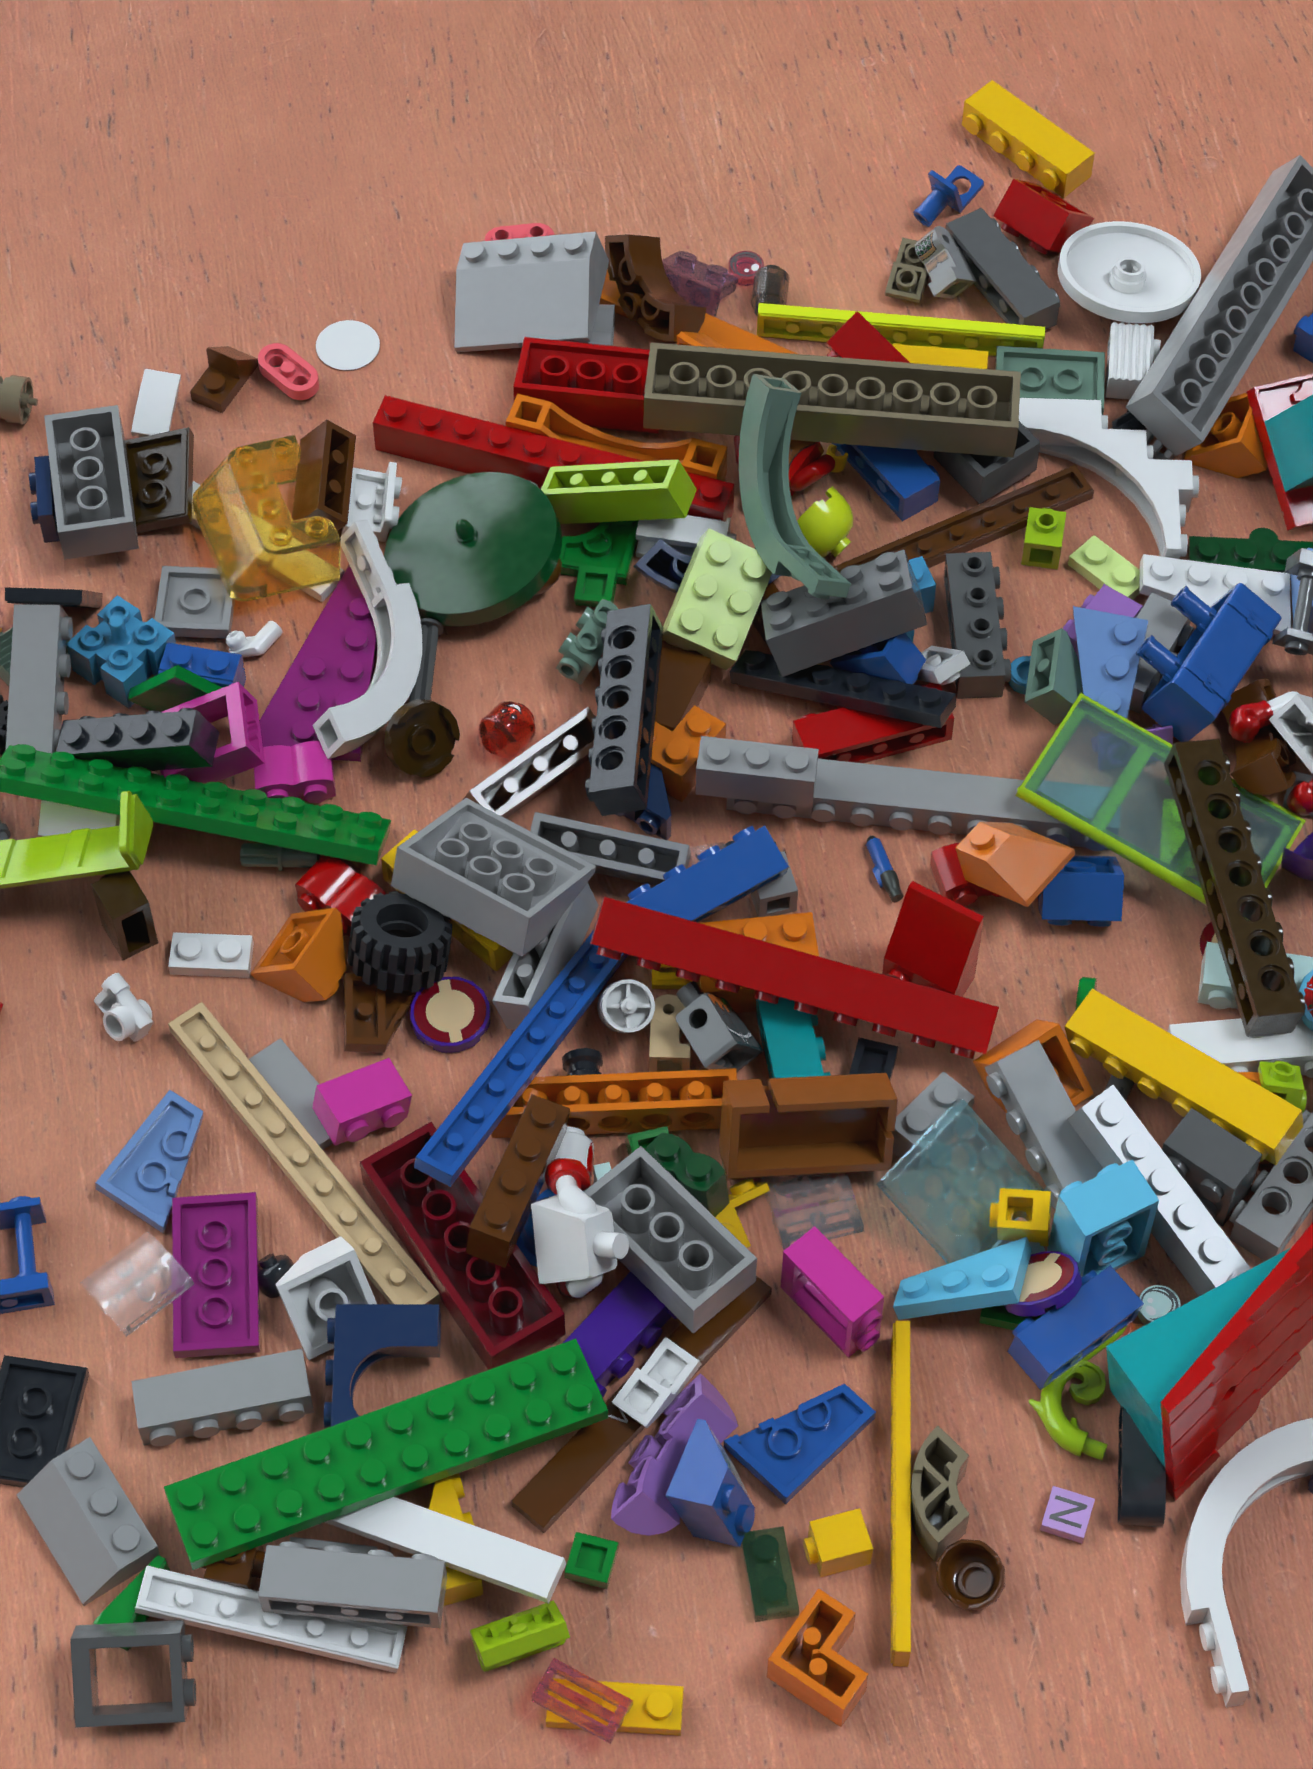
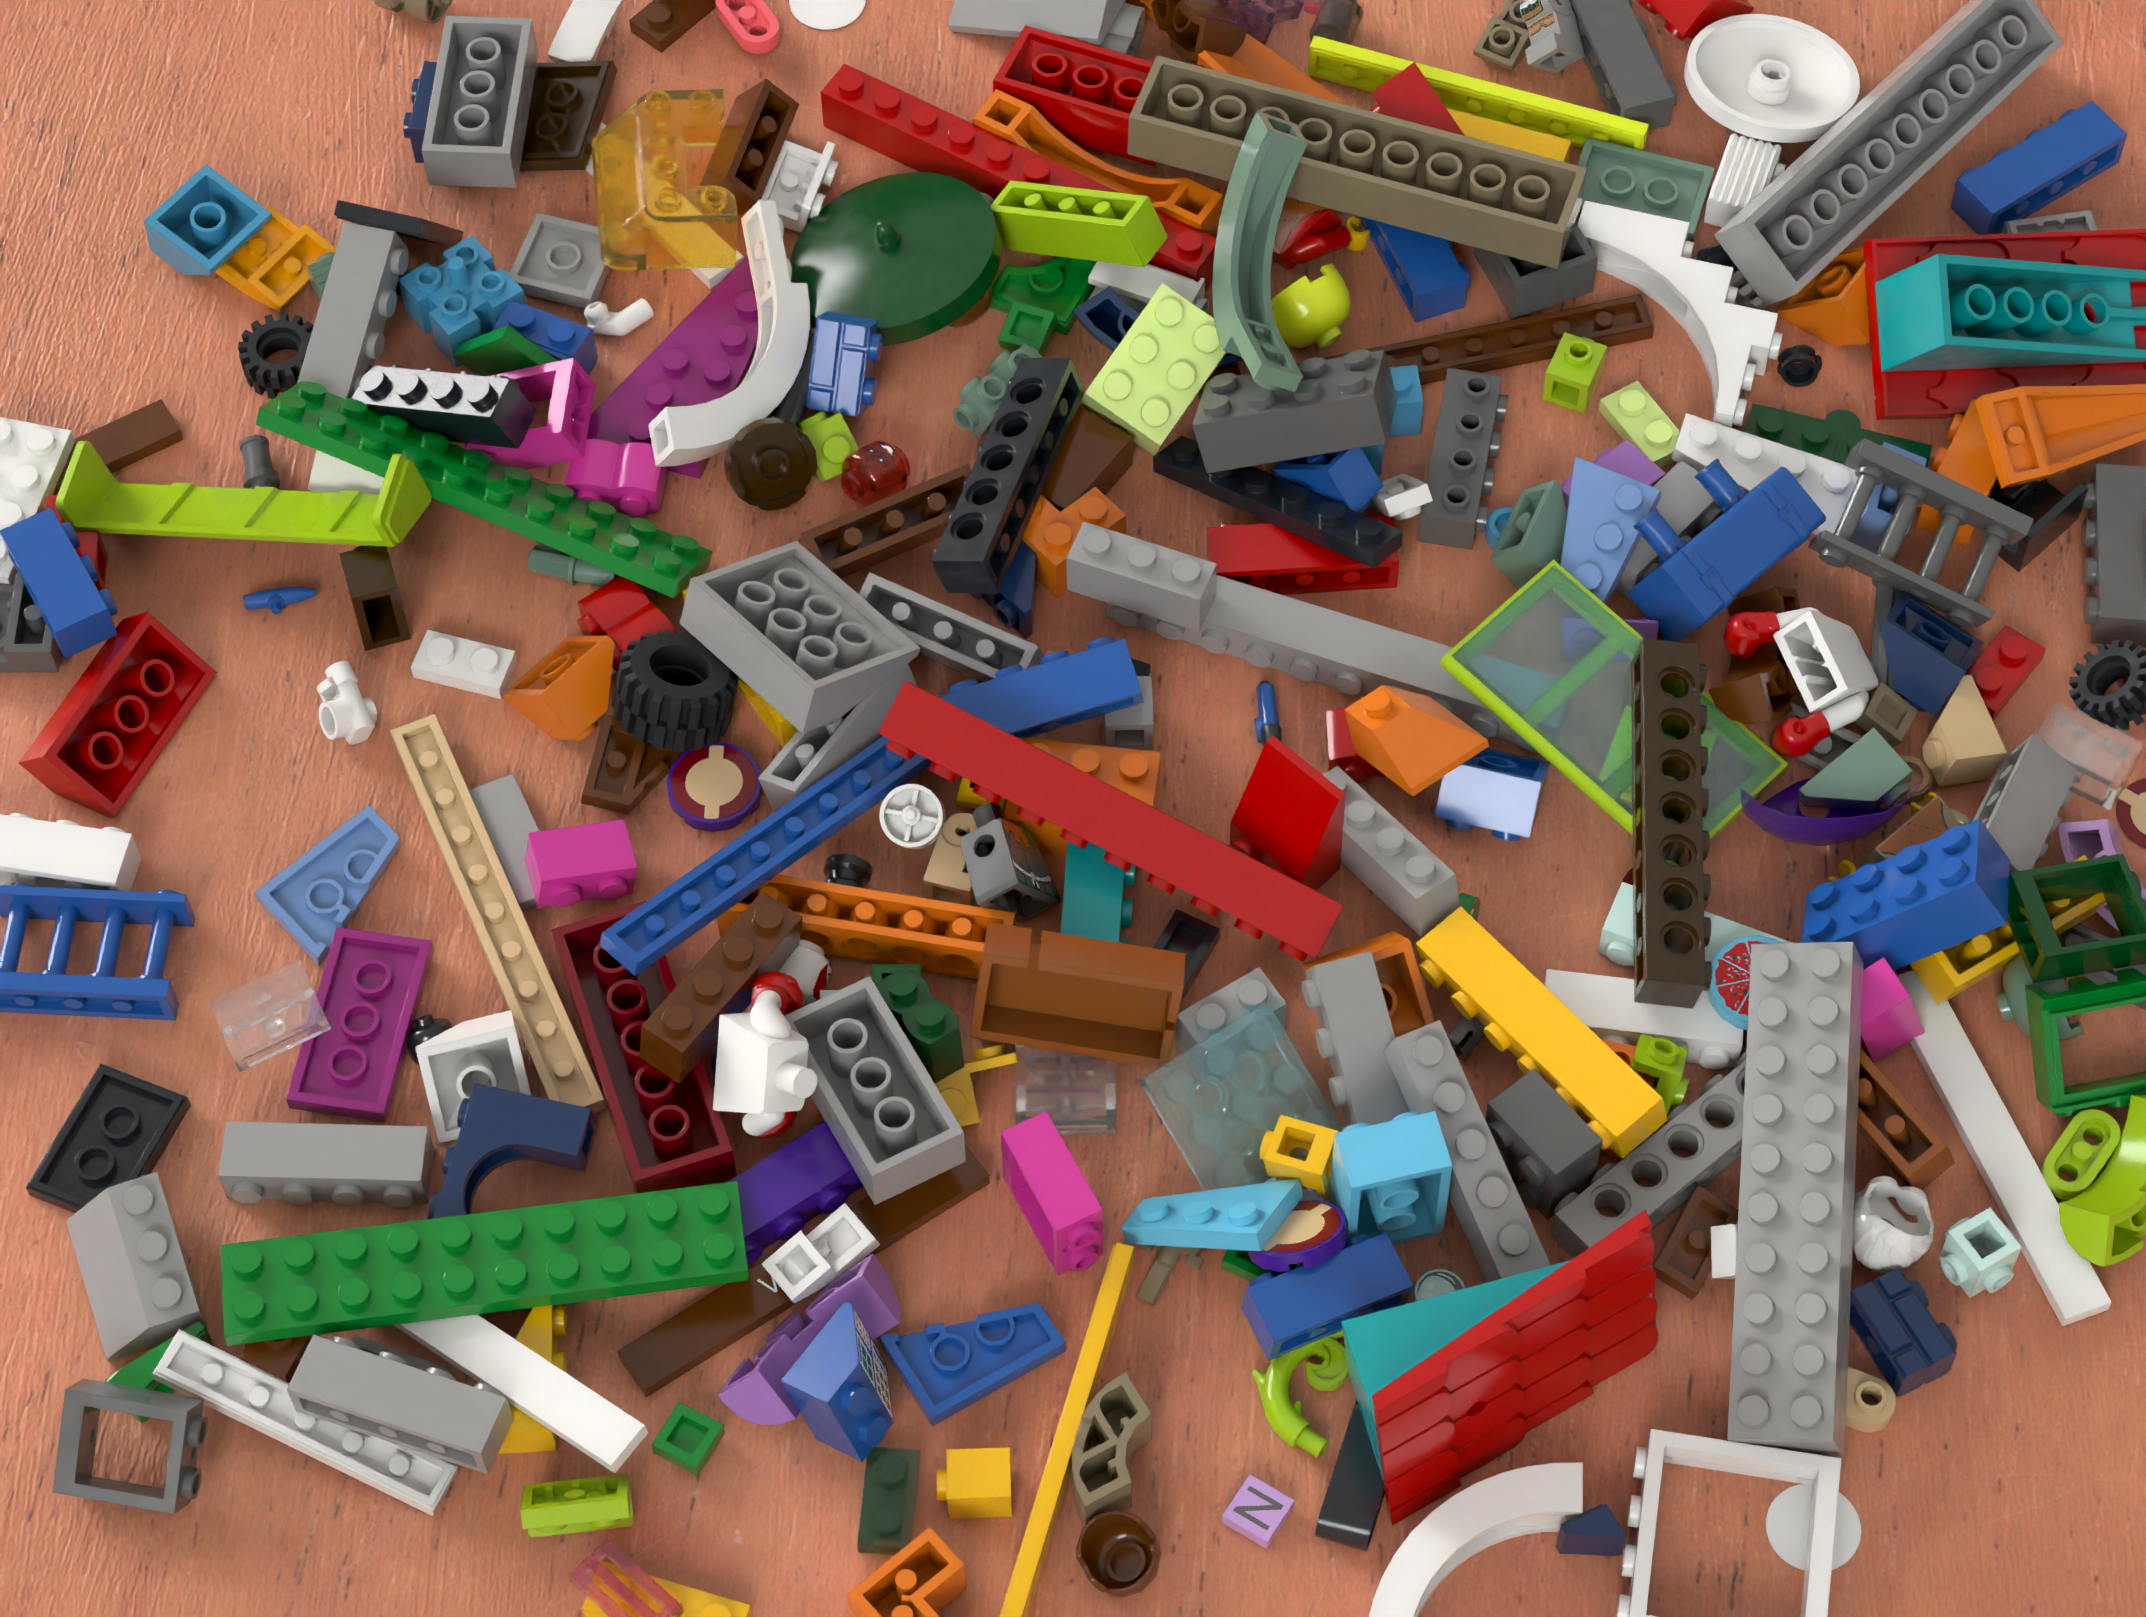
camera: 15 degrees right, 0 degrees up
(37, 931) = (277, 598): none -> blue helmet
(457, 643) = (843, 364): none -> brick
(465, 708) = (831, 441): none -> lime bracket
(932, 1334) = (1163, 1268): none -> dark tan piece
(1028, 965) = (1393, 860): none -> light grey brick
(1216, 498) = (1796, 373): none -> black plate

